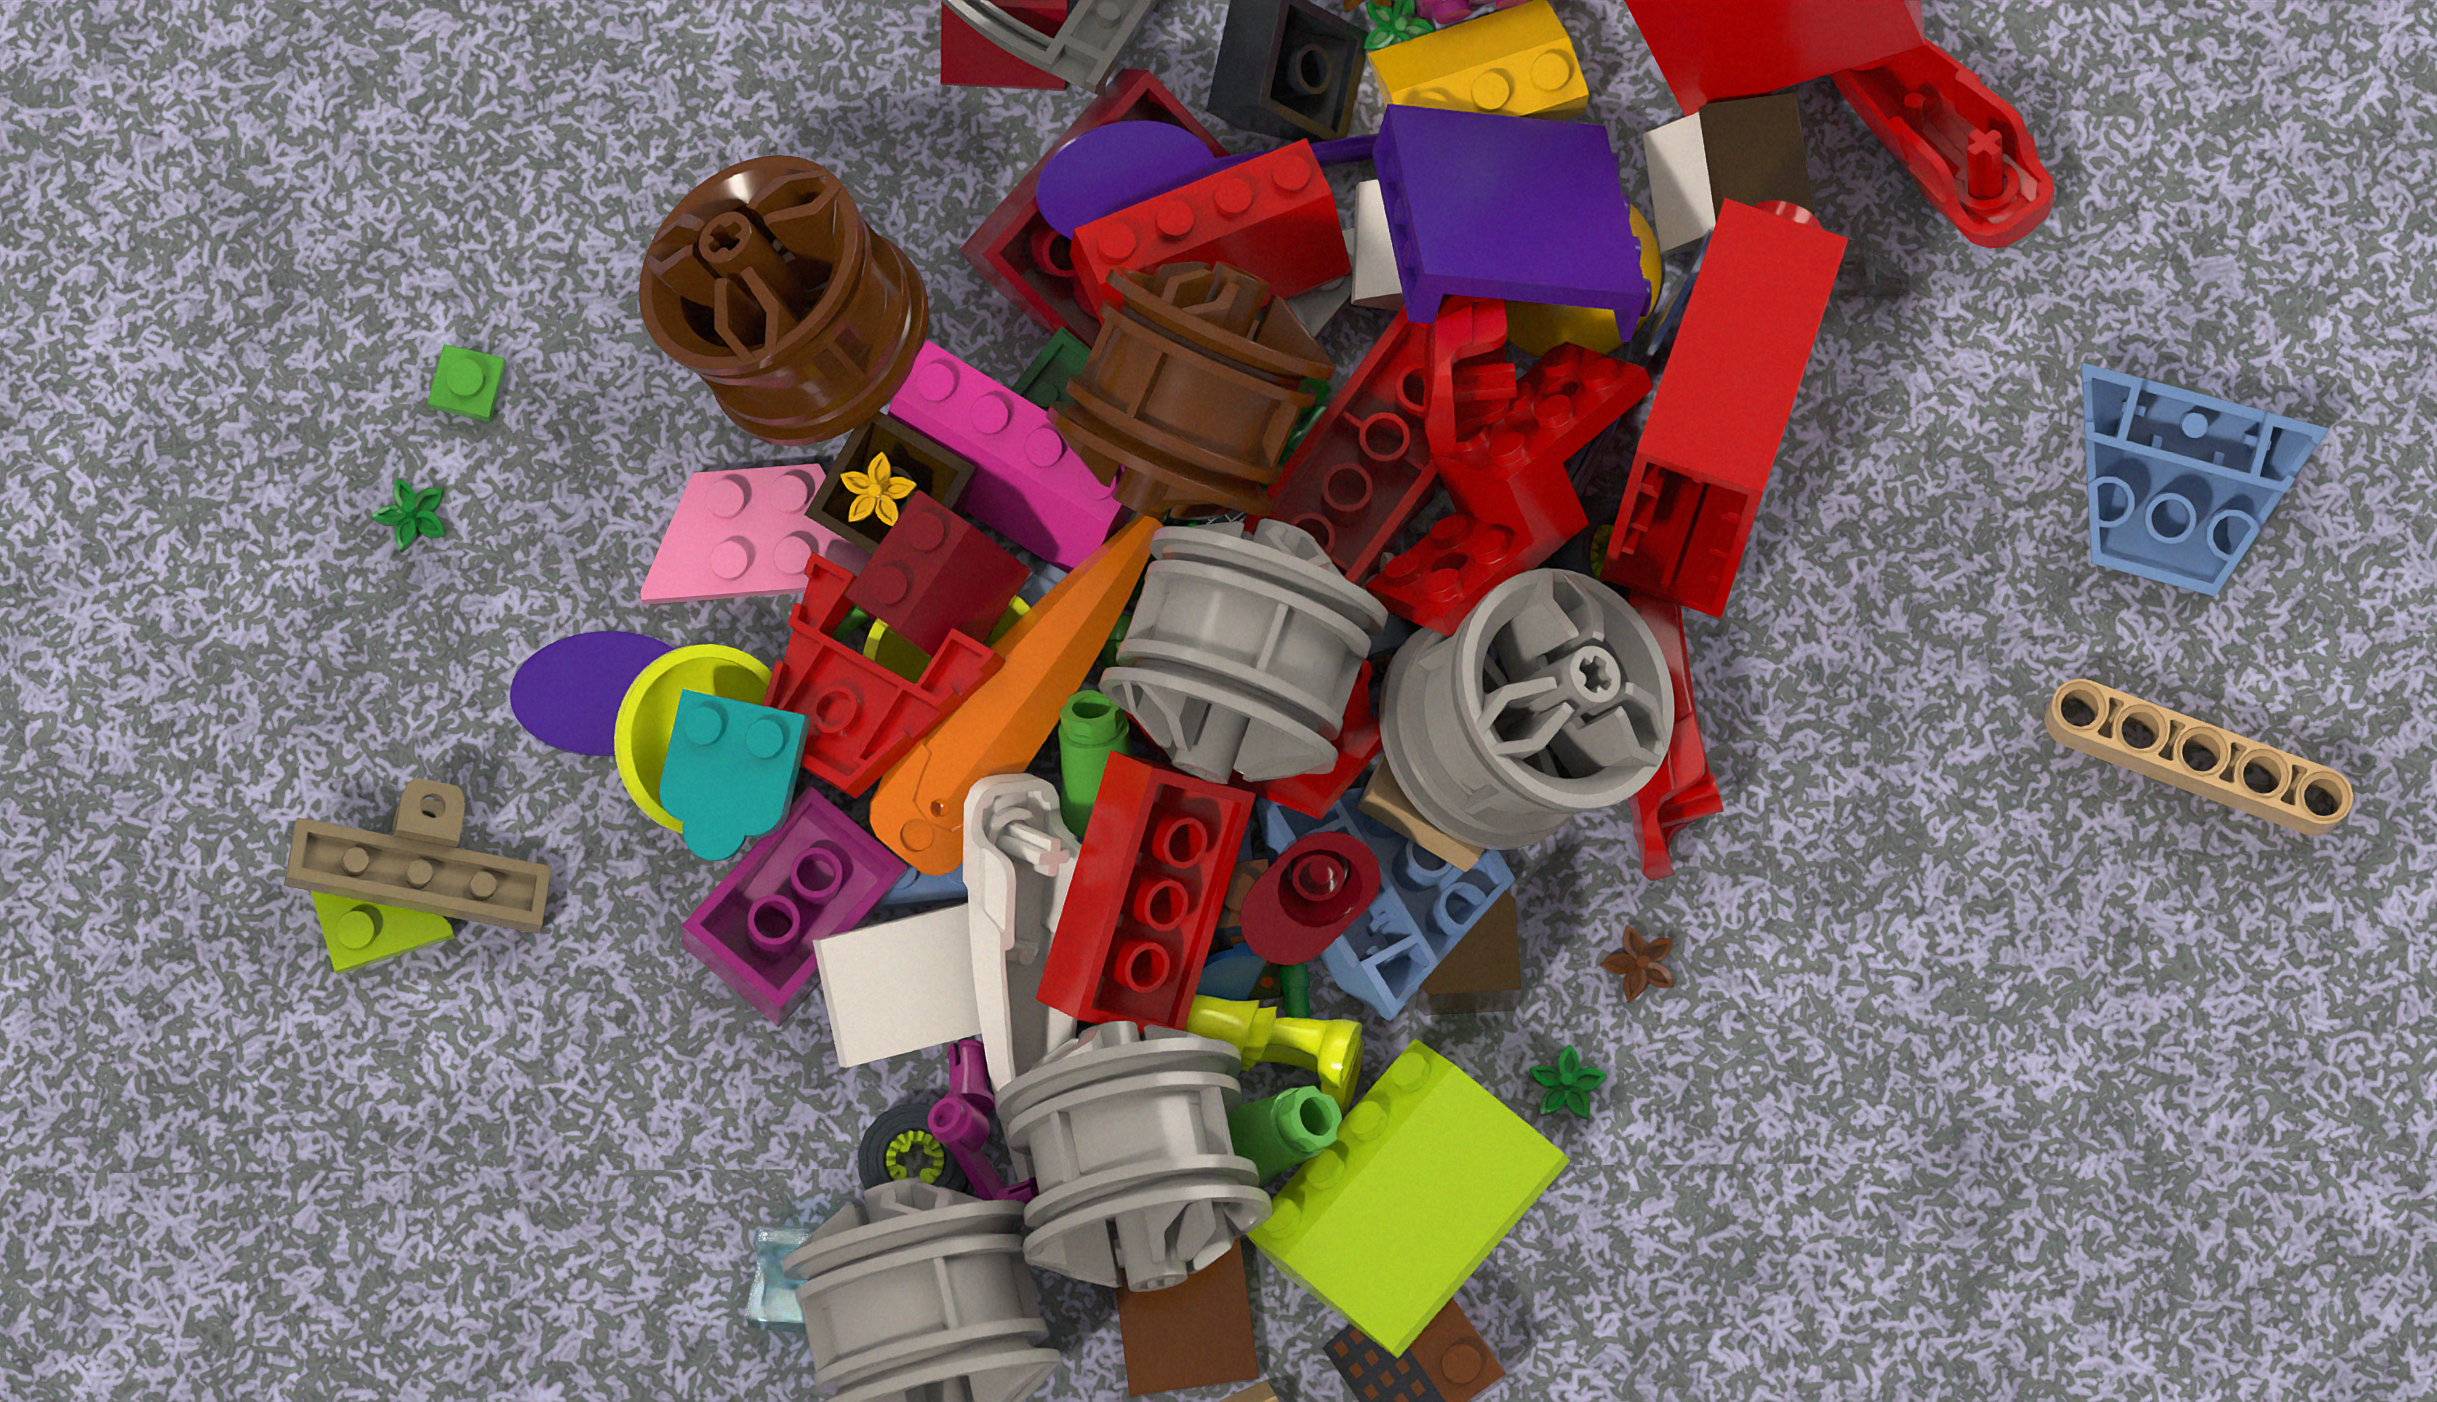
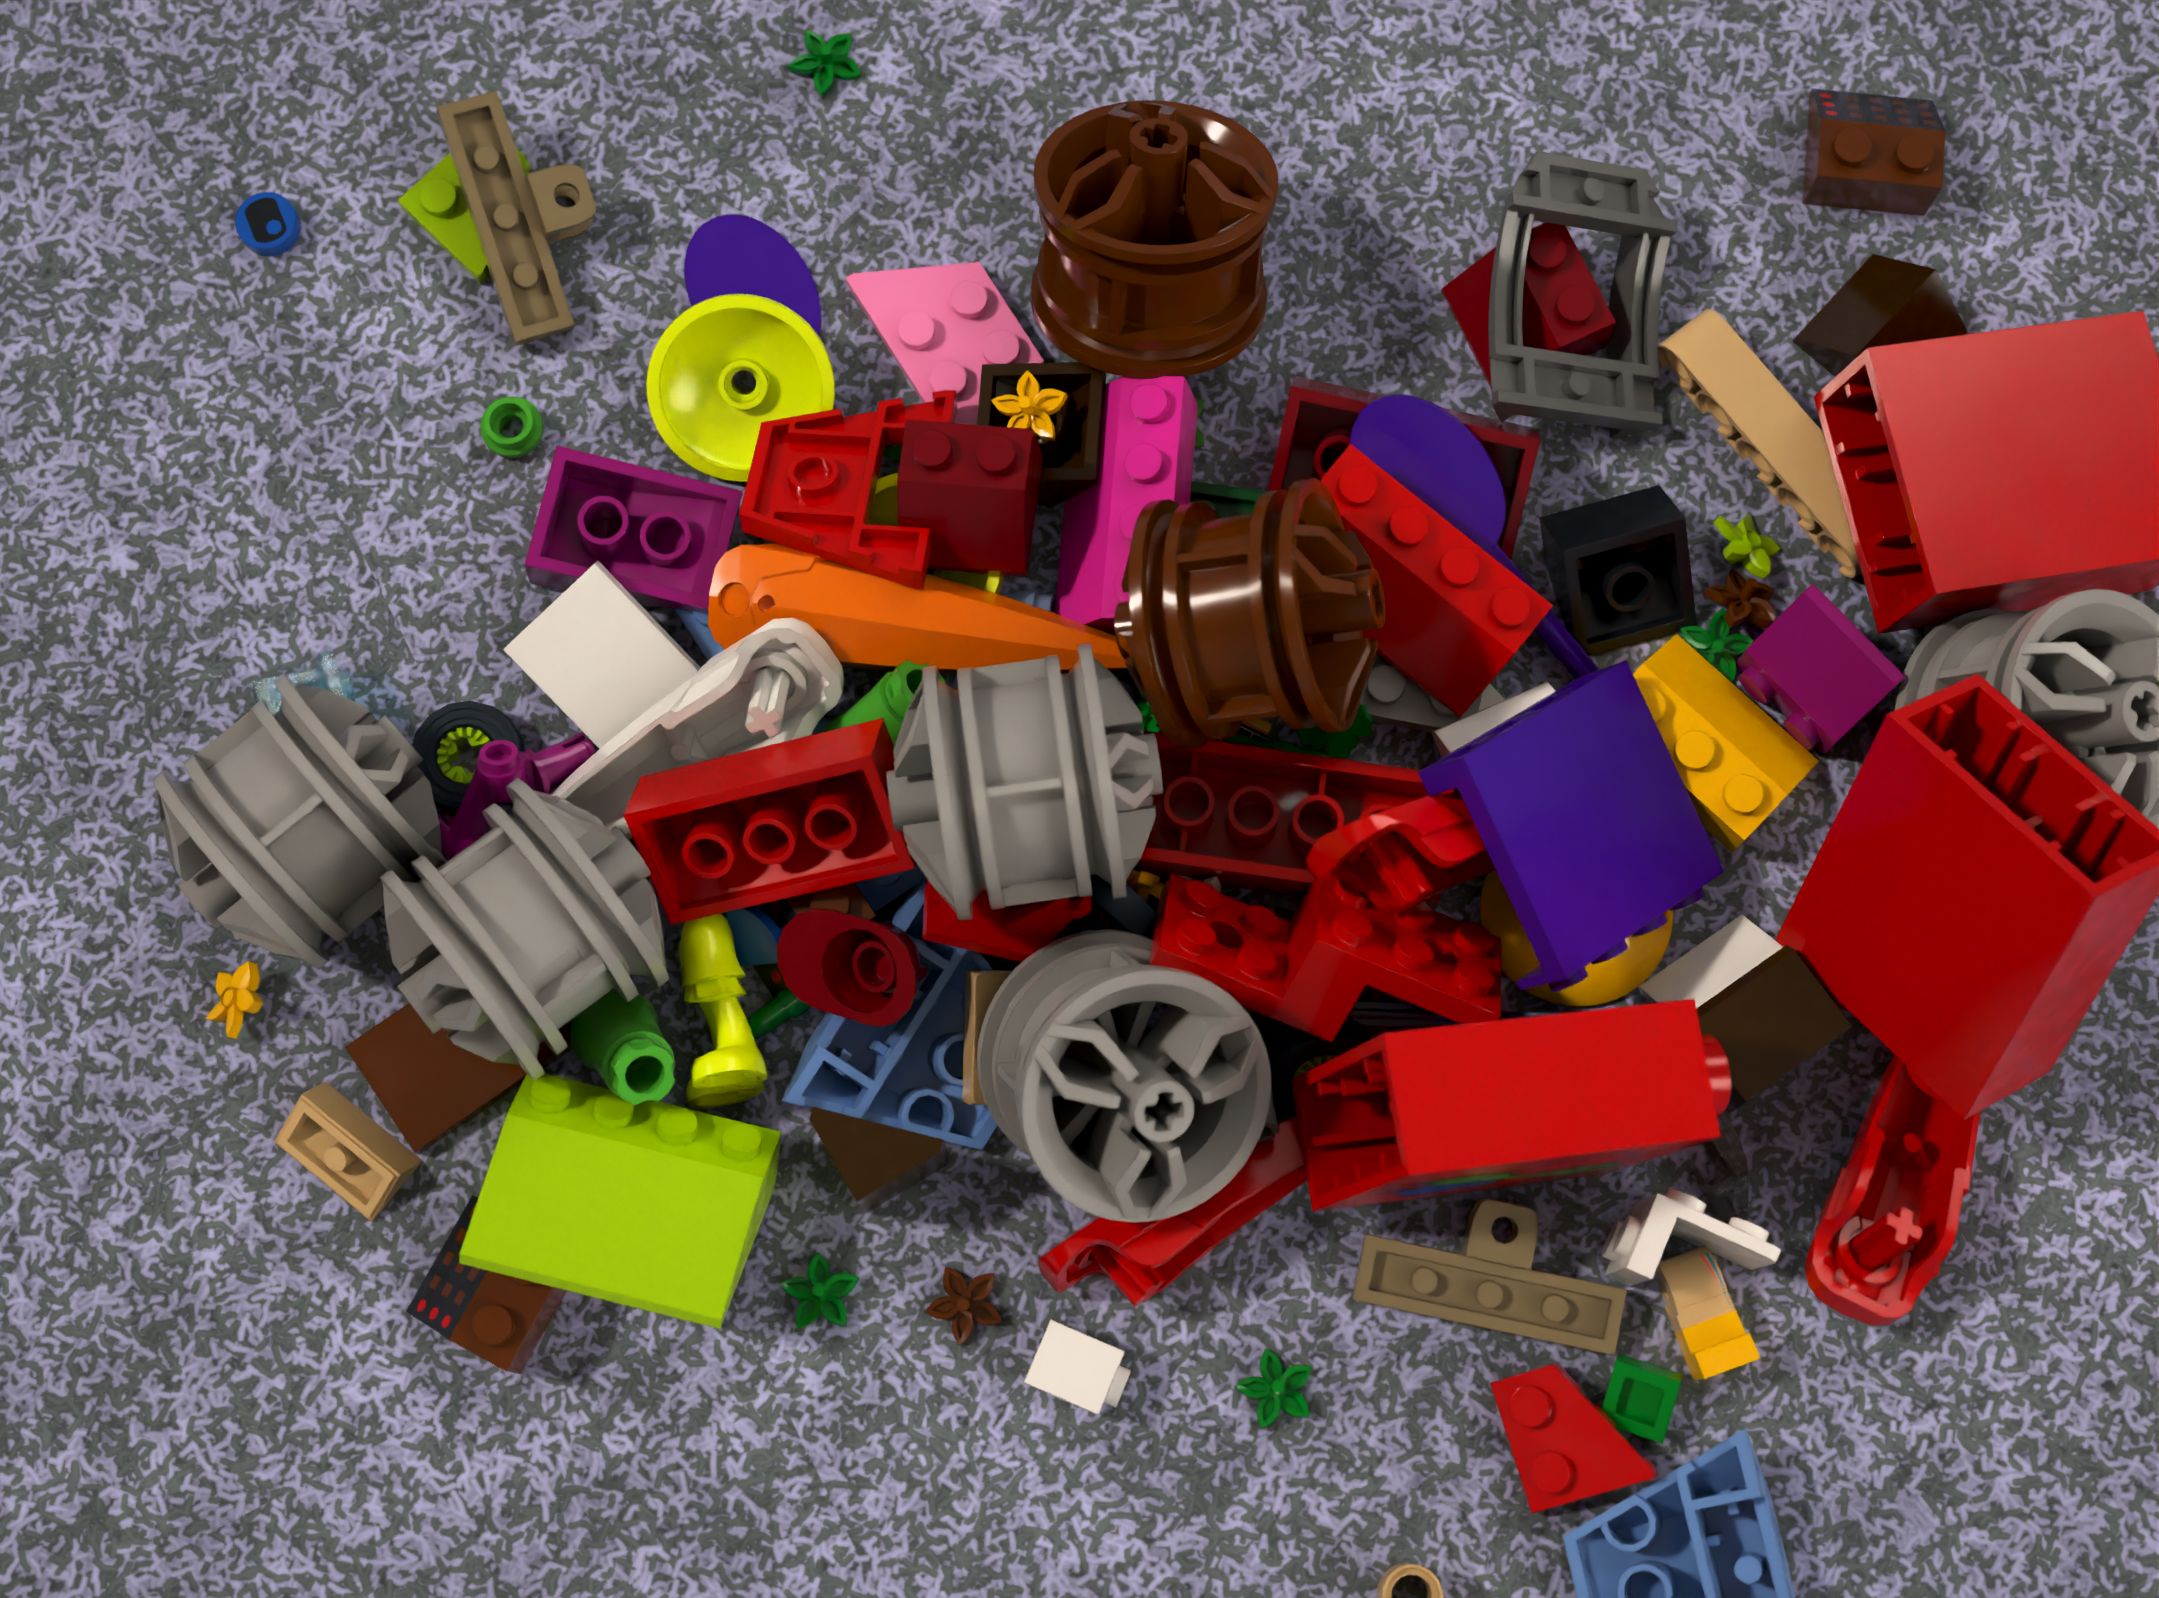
camera: 65 degrees right, 0 degrees up
(287, 1105) = (268, 224): none -> blue tile
(467, 383) = (962, 45): bright green plate -> none
(612, 953) = (499, 414): none -> bright green plate
(730, 771) = (713, 415): teal plate -> none
(1748, 892) = (1078, 1369): none -> white brick
(1848, 737) = (1276, 1389): none -> green plant
(1850, 509) = (1491, 1283): none -> dark tan plate
(1876, 353) = (1642, 1237): none -> white bracket
(1967, 349) = (1703, 1314): none -> leg
(2010, 438) = (1641, 1397): none -> green plate
(2012, 520) = (1564, 1441): none -> red wing

